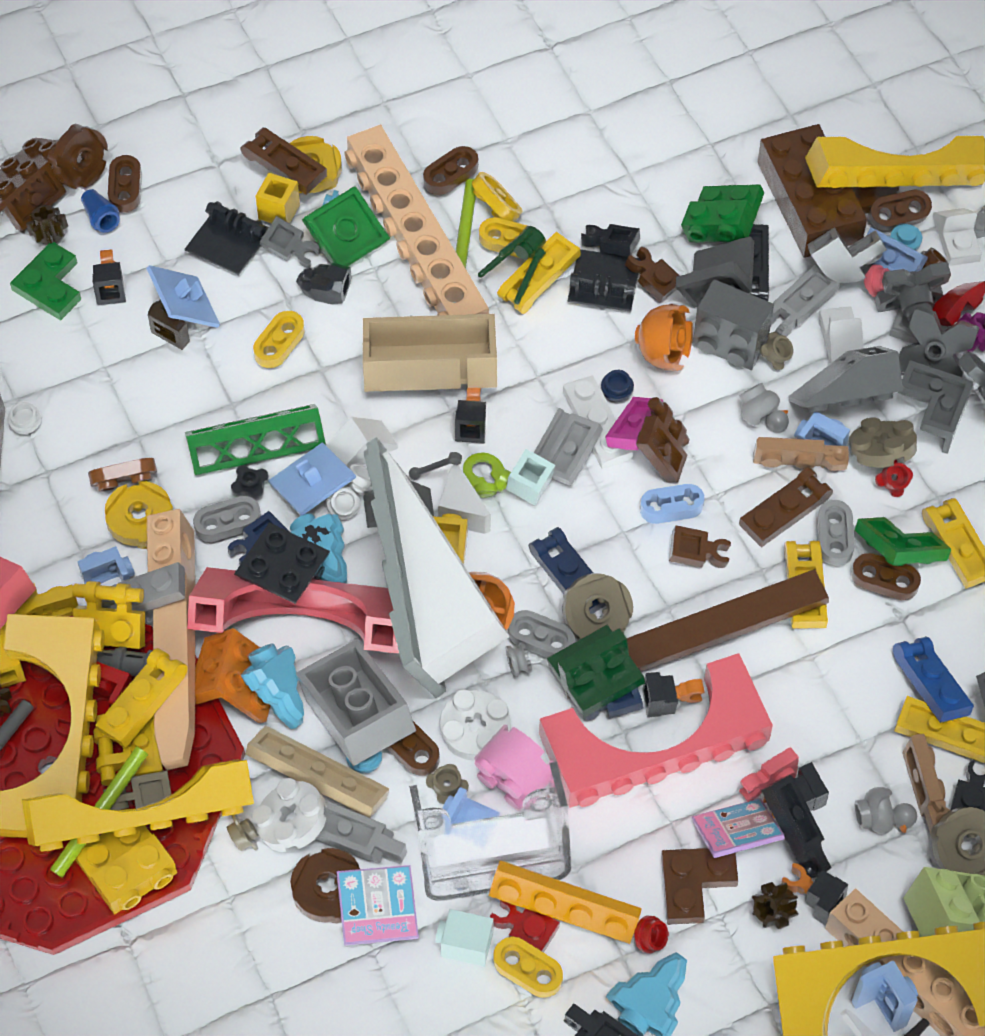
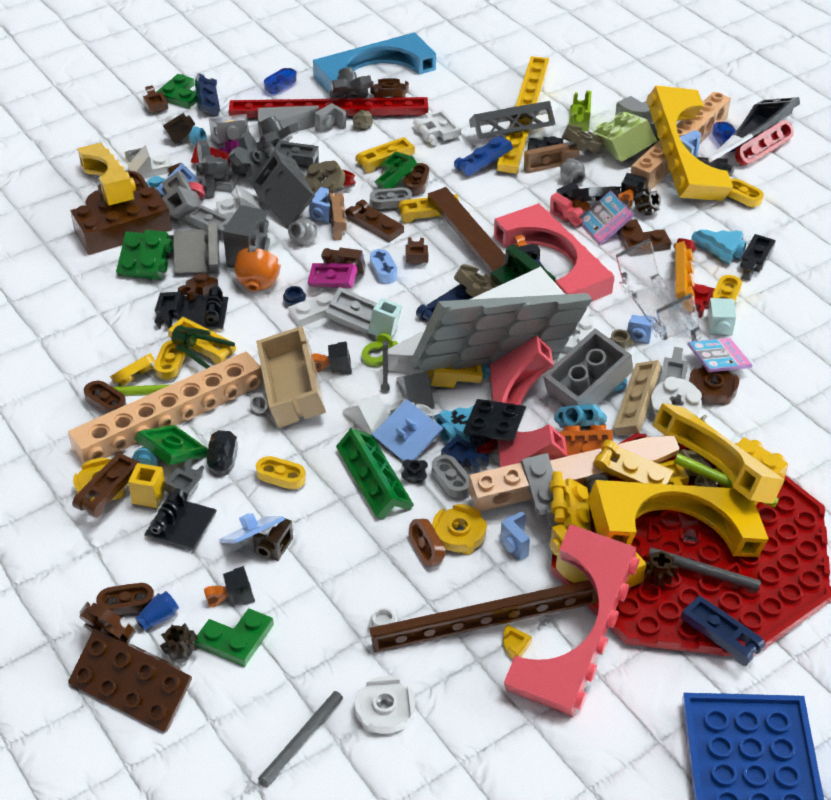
camera: 100 degrees left, 15 degrees down
(513, 765) = (607, 301): bright pink brick -> none

